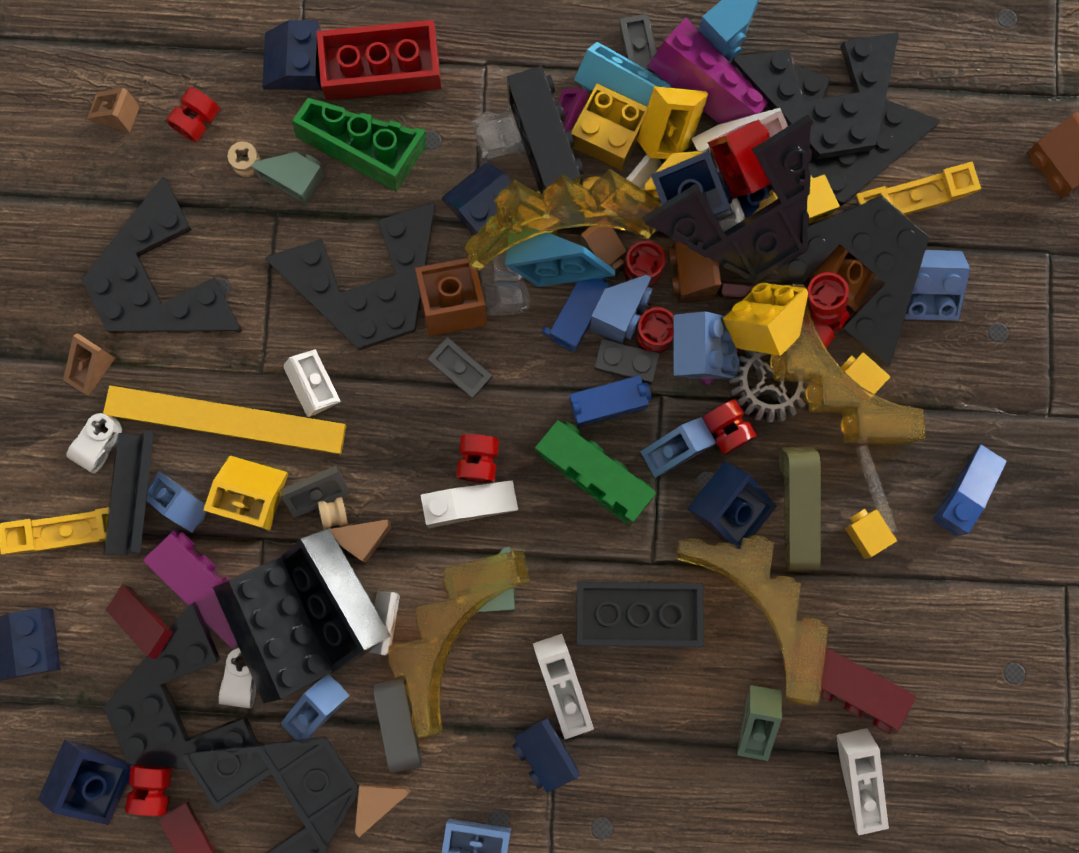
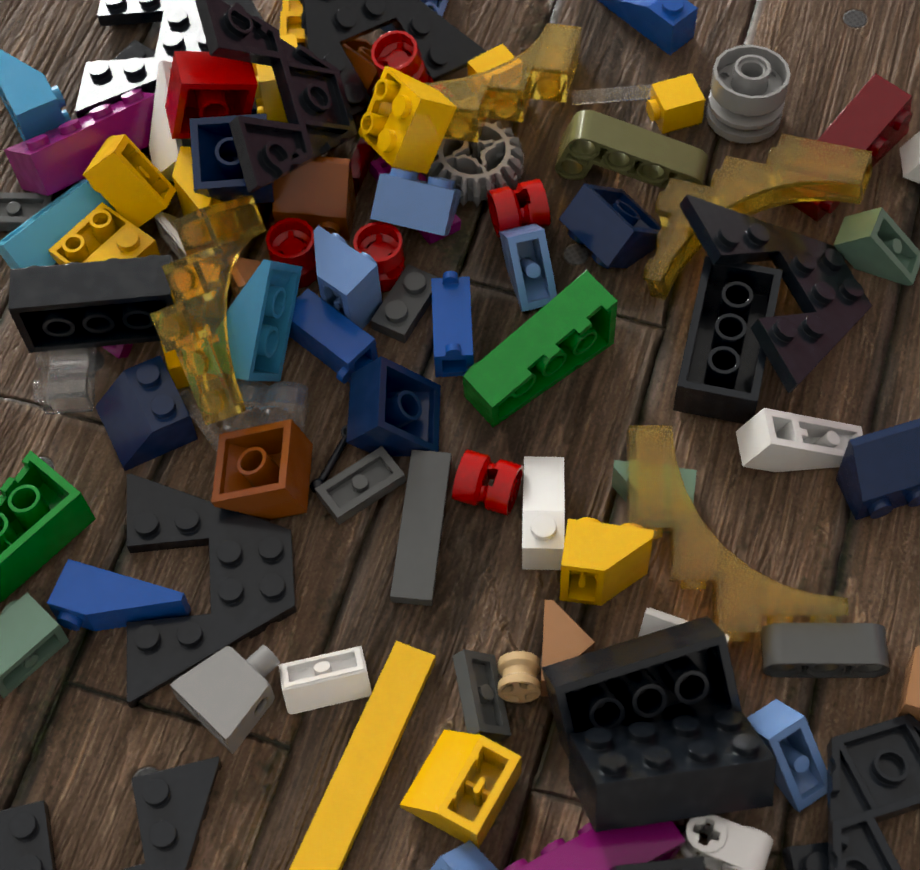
camera: 75 degrees left, 20 degrees down
(282, 322) = (228, 693): none -> light grey torso
(333, 212) = (108, 600): none -> blue slope
(423, 549) = (602, 559): none -> yellow slope
(439, 420) = (421, 528): none -> dark grey tile
(505, 348) = (331, 462): none -> black hinge
(524, 377) = (393, 409): none -> dark blue slope
(712, 676) = (811, 270): none -> black wing
(887, 591) = (747, 93): none -> light grey wheel

